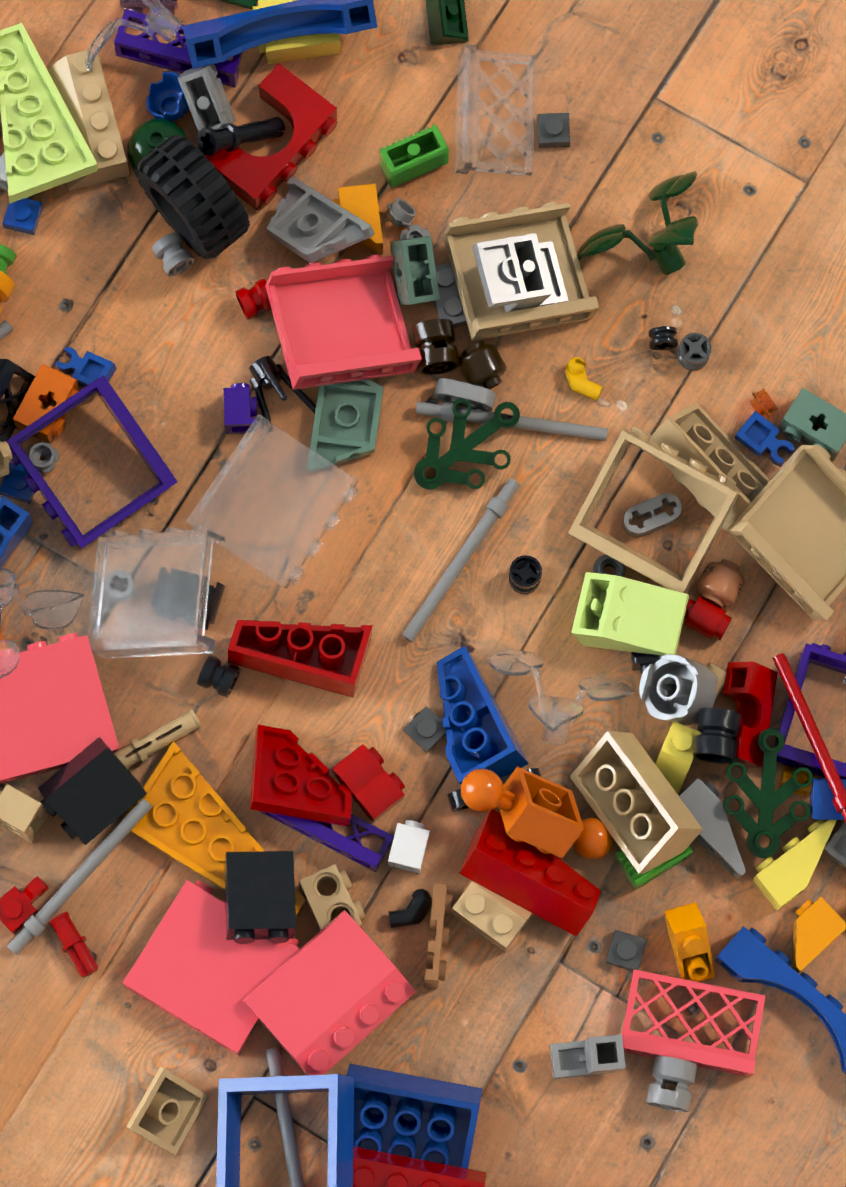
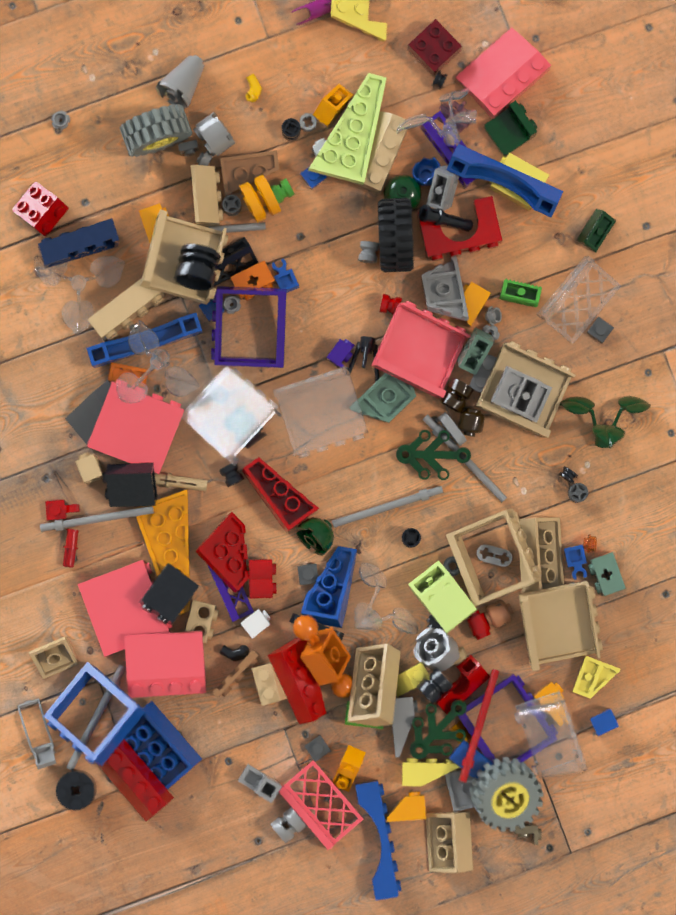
camera: 40 degrees right, 10 degrees up
(396, 667) = (316, 534): none -> dark green cylinder
(578, 379) = (512, 463): yellow arm -> none

